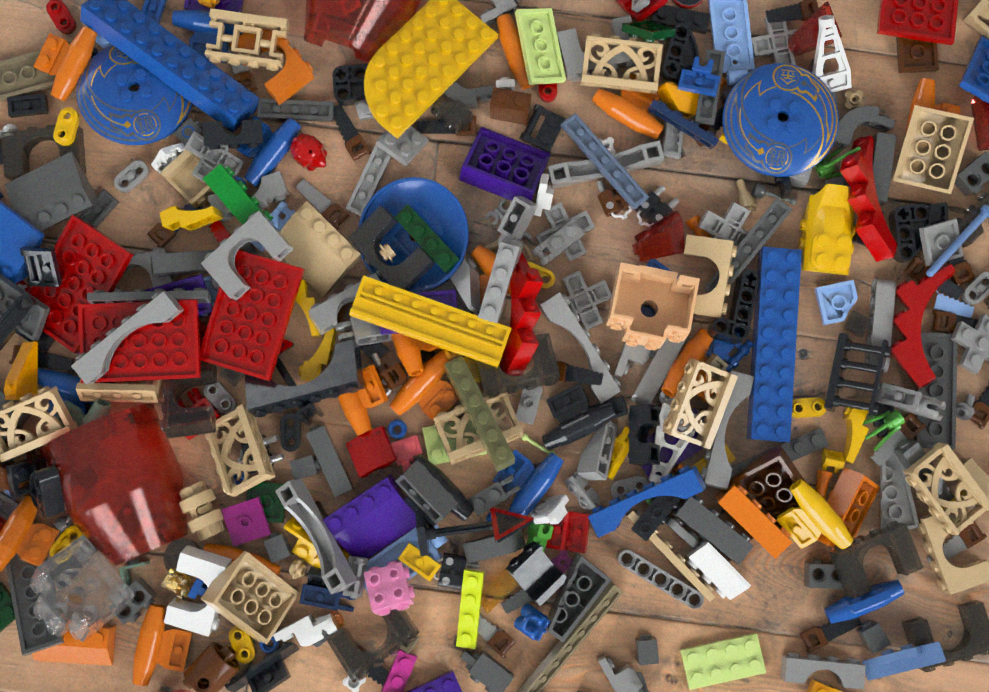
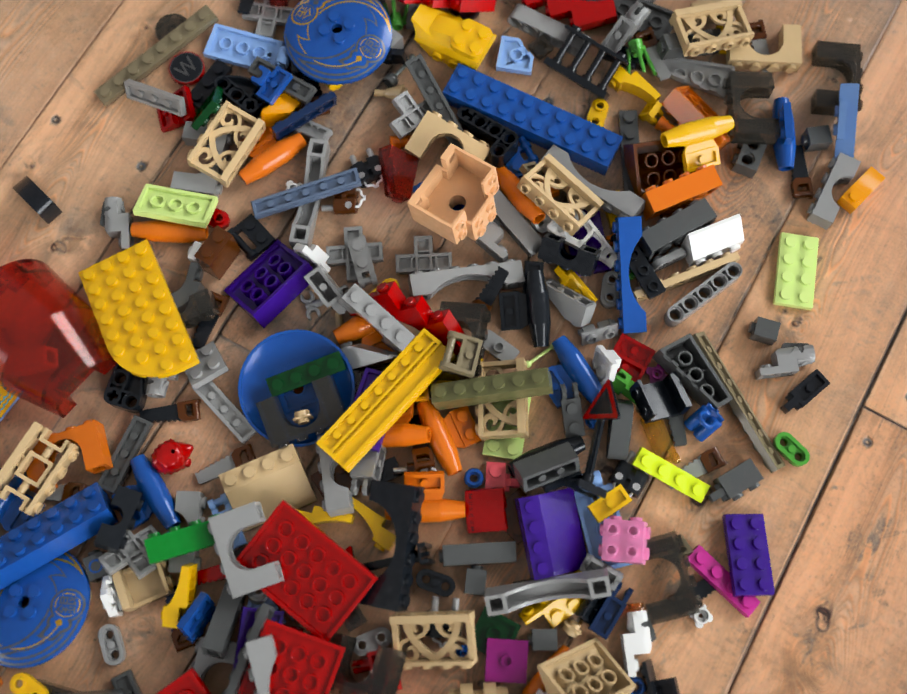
camera: 70 degrees left, 10 degrees down
(179, 238) = (197, 617): none -> blue plate
(498, 379) = (467, 356): none -> dark tan plate

